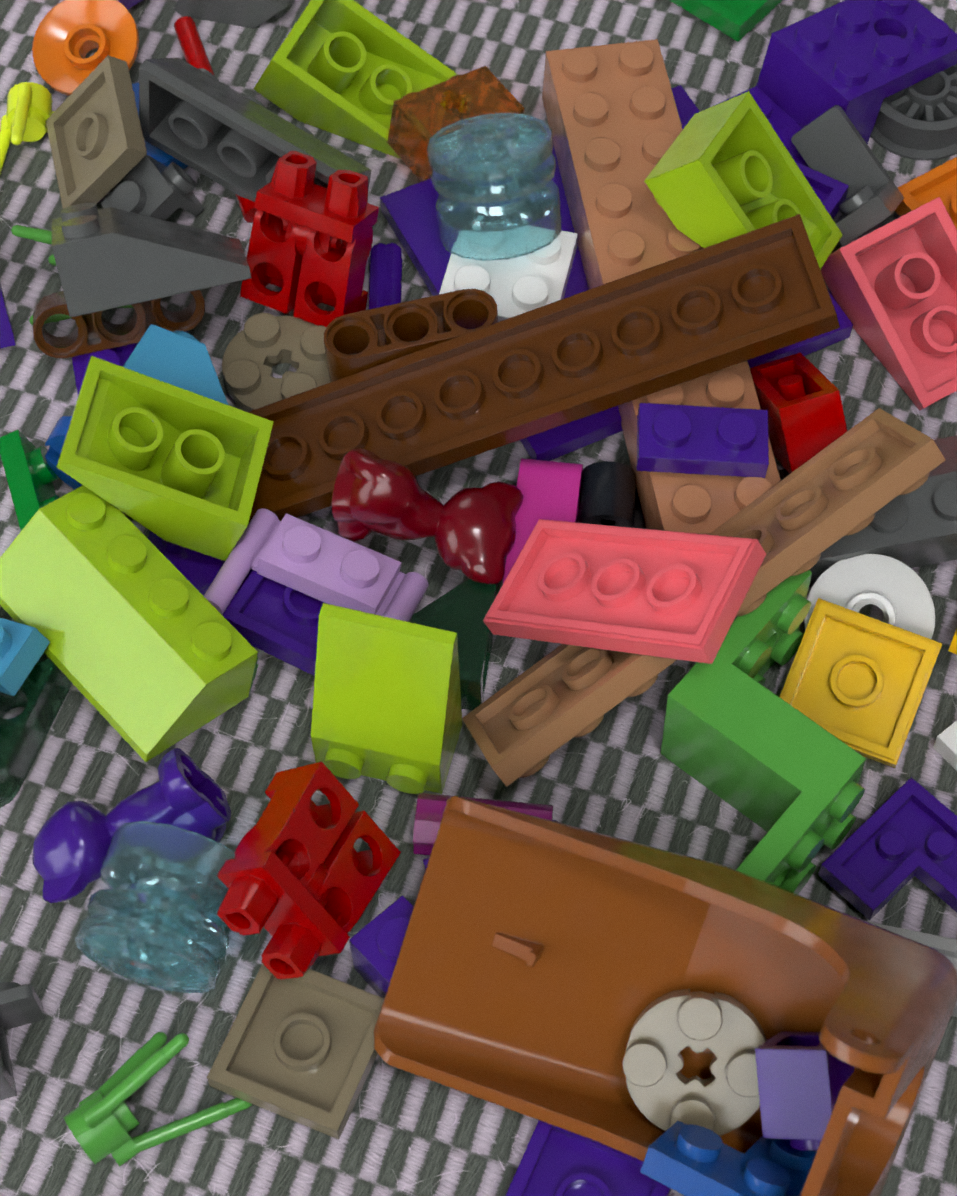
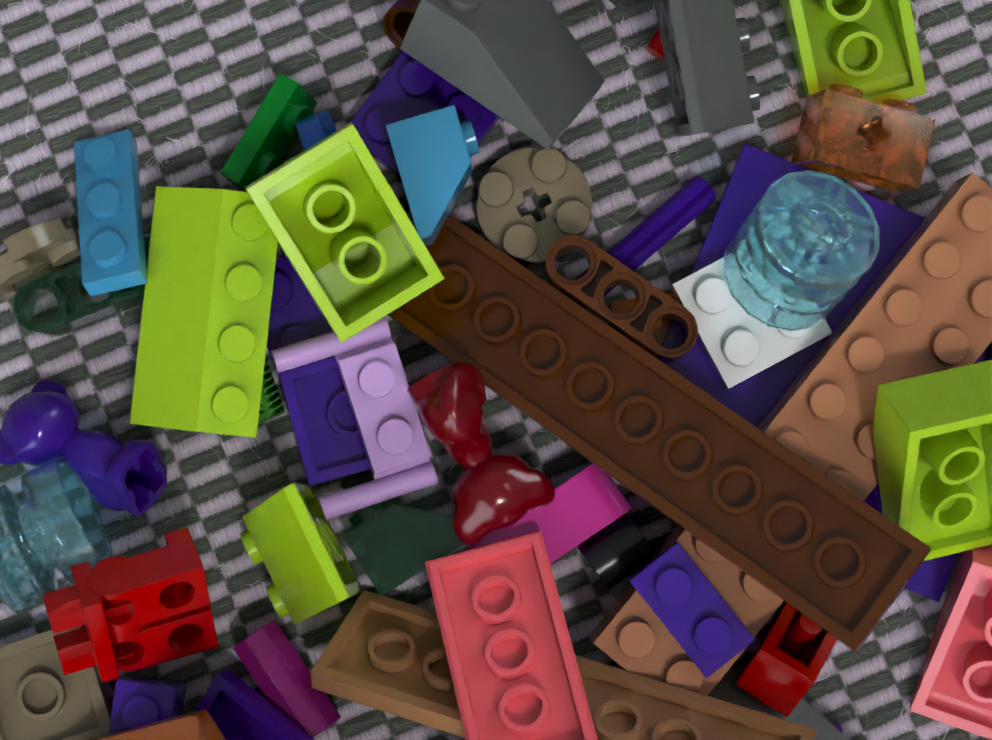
camera: 50 degrees right, 25 degrees up
(310, 241) = (637, 148): red hips -> none

